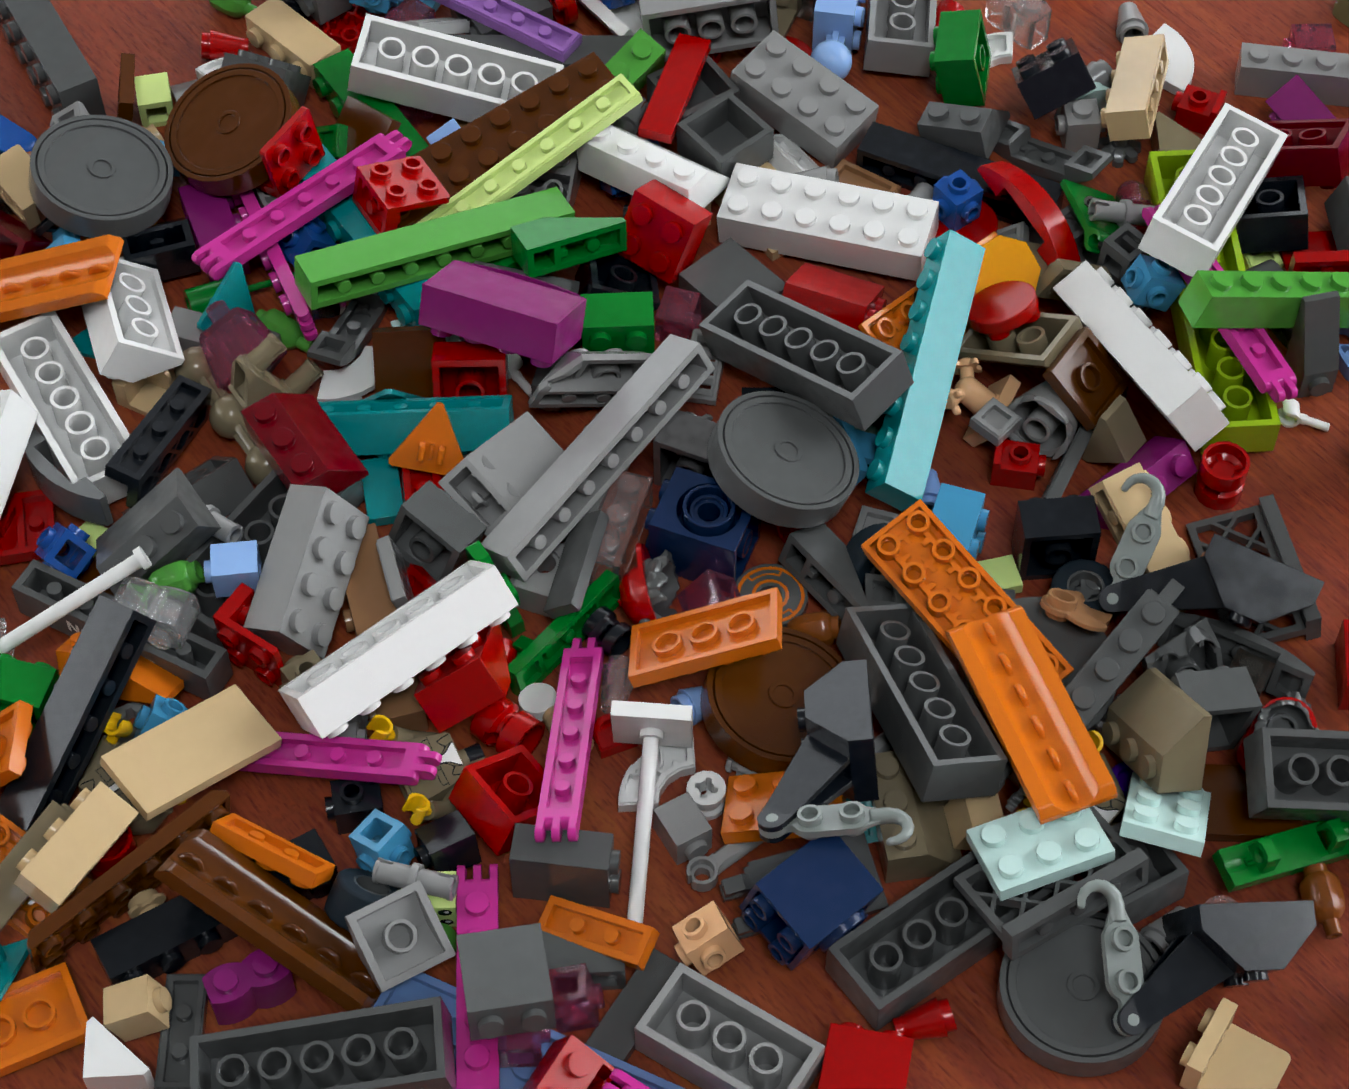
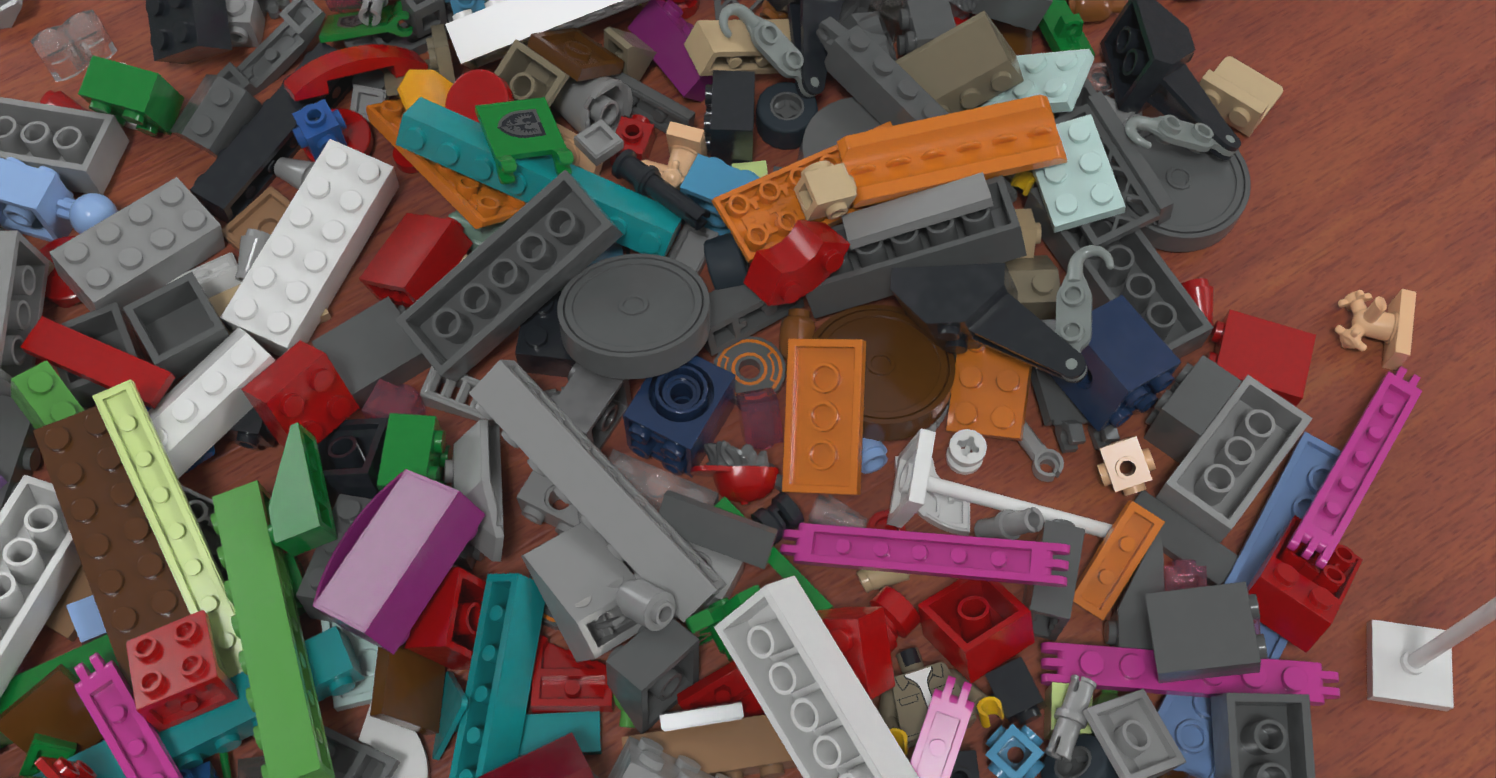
camera: 85 degrees left, 10 degrees up
(430, 445) = (534, 668): orange piece -> none
(486, 505) = (646, 604): none -> light grey brick
(537, 699) = (846, 592): white tile -> none
(610, 820) = (1010, 524): none -> light grey pin
(682, 828) = (1004, 472): light grey brick -> none
(783, 988) = (1189, 407): none -> dark grey piece
(869, 589) = (796, 263): none -> red brick
(947, 461) = (648, 181): none -> black pin
(950, 595) = (825, 190): none -> tan brick
(950, 687) = (917, 210): none -> light grey tile
(964, 333) = (522, 131): none -> green flag
(1001, 499) = (683, 146): none -> light nougat piece
(1069, 604) = (826, 111): medium nougat plate -> none

